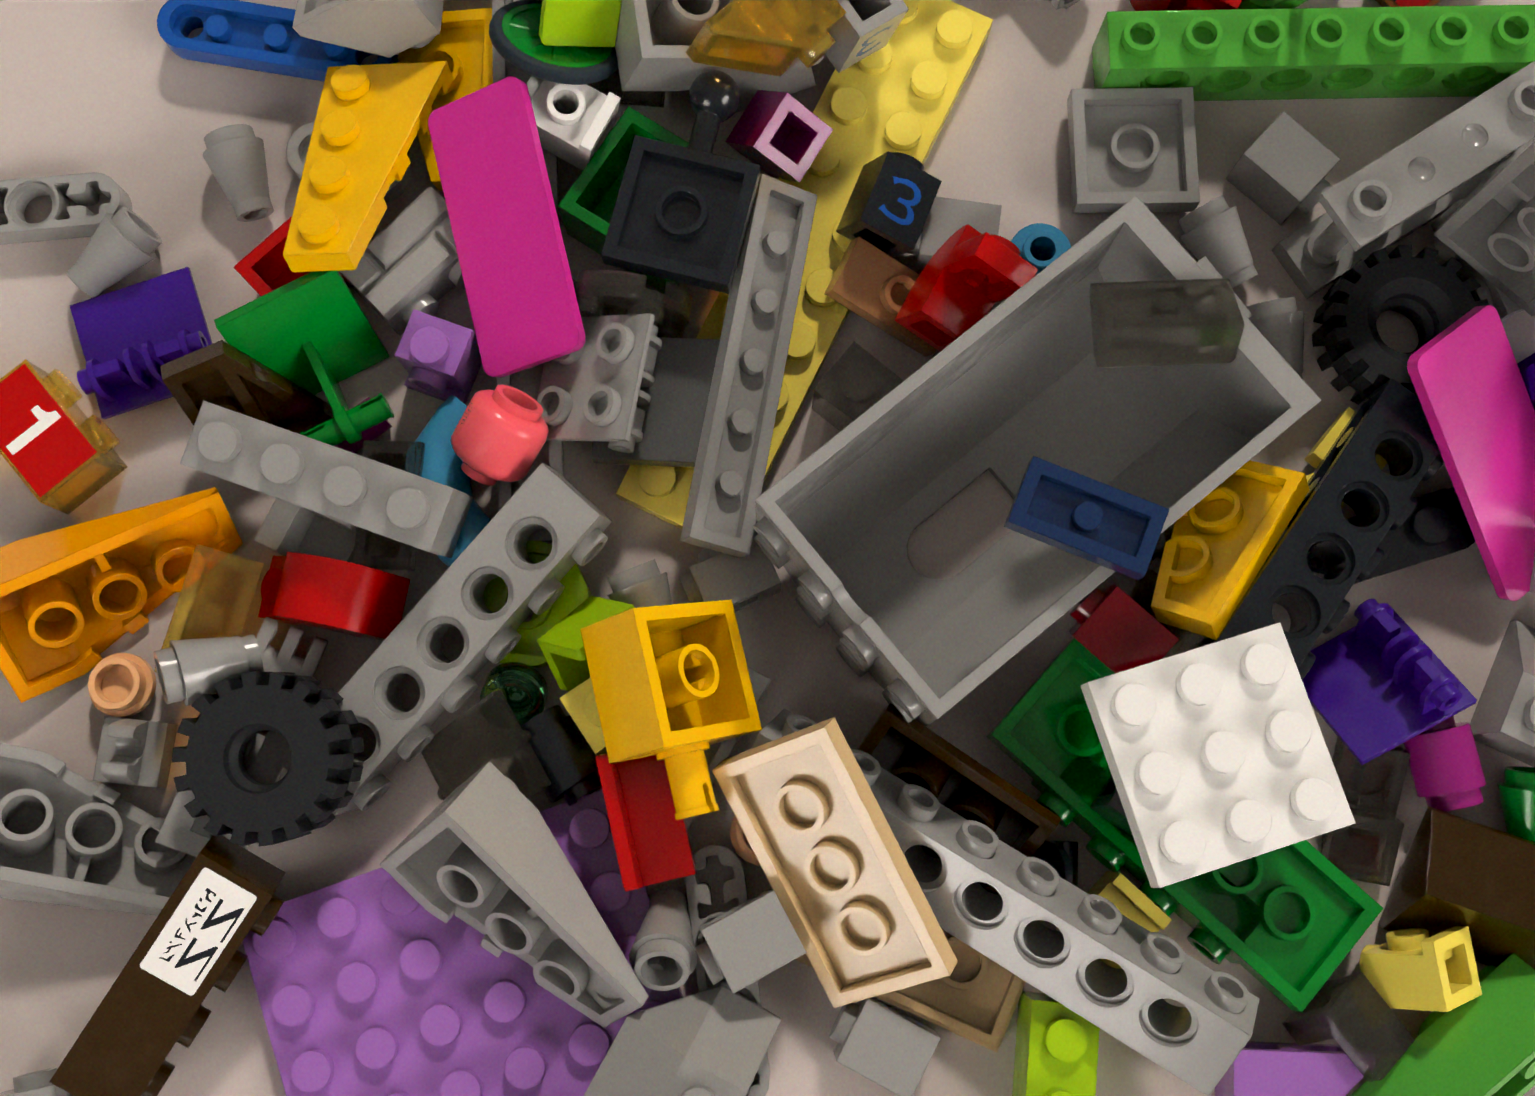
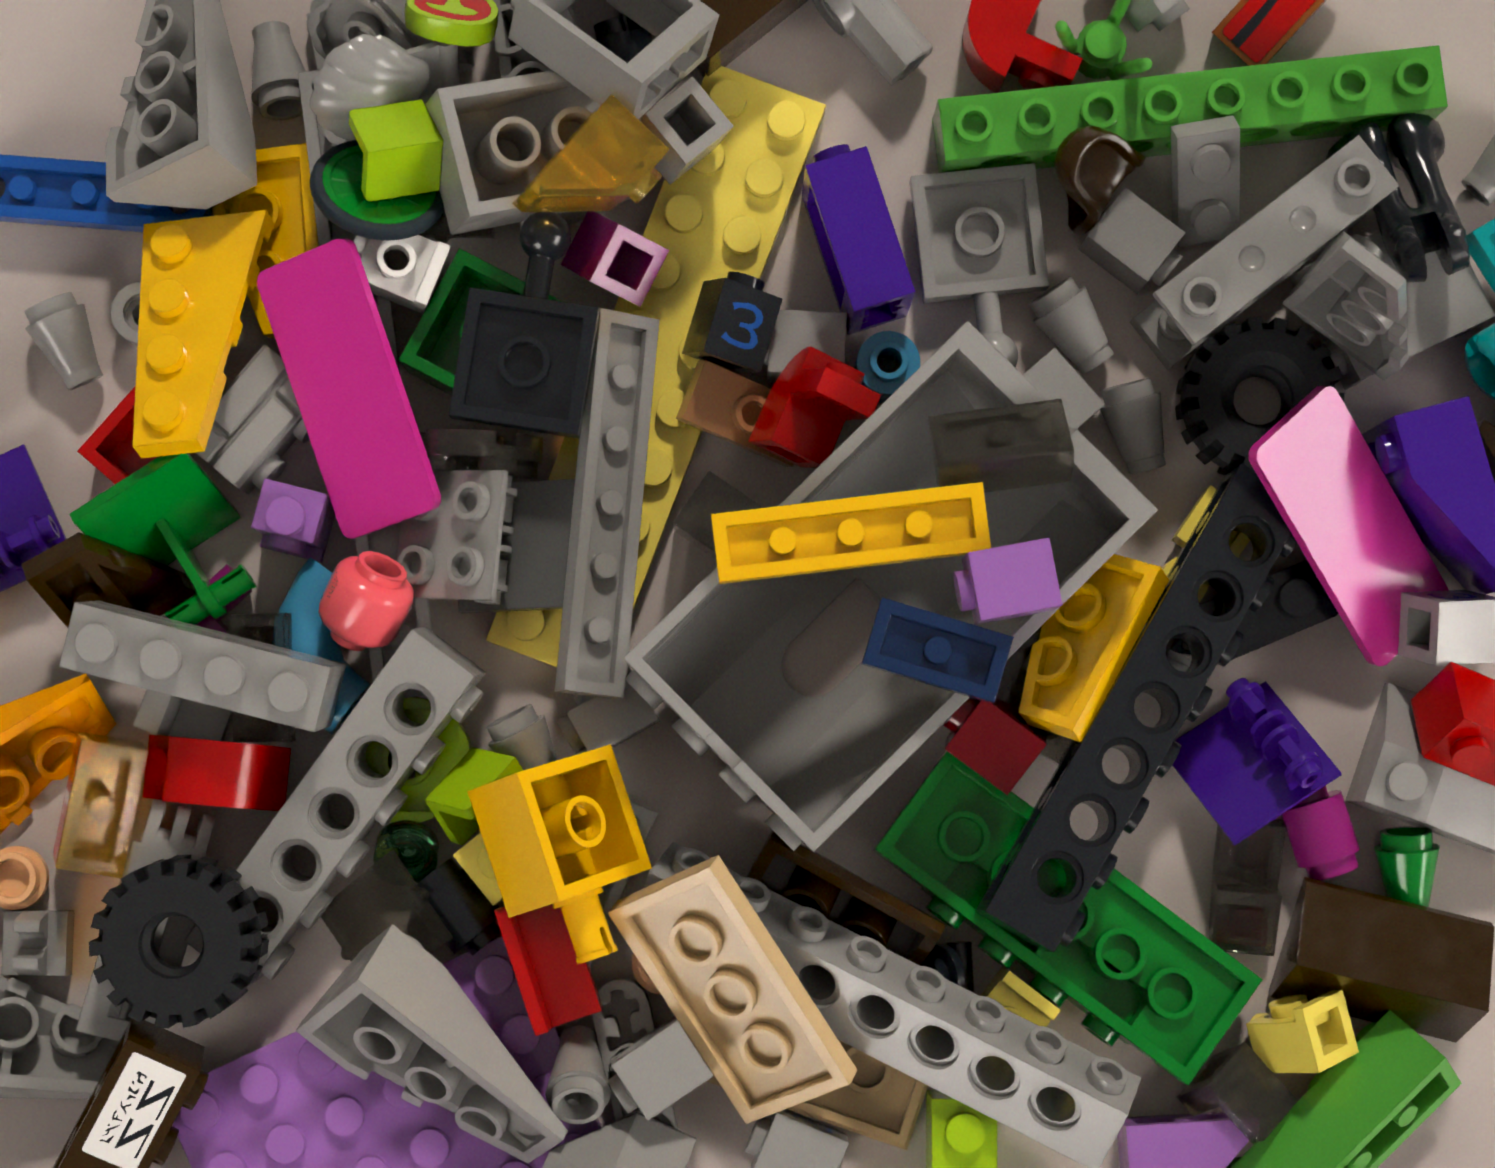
camera: 10 degrees left, 5 degrees up
(195, 665) = (100, 860): light grey cone -> none
(1004, 389) = (850, 532): none -> yellow plate
(1018, 134) = (856, 238): none -> dark purple window
(1168, 452) = (1008, 581): none -> medium lavender brick
(1216, 755) = (1084, 855): white plate -> none
(1254, 85) = (1090, 169): none -> dark brown piece
(1362, 107) = (1206, 179): none -> light grey plate

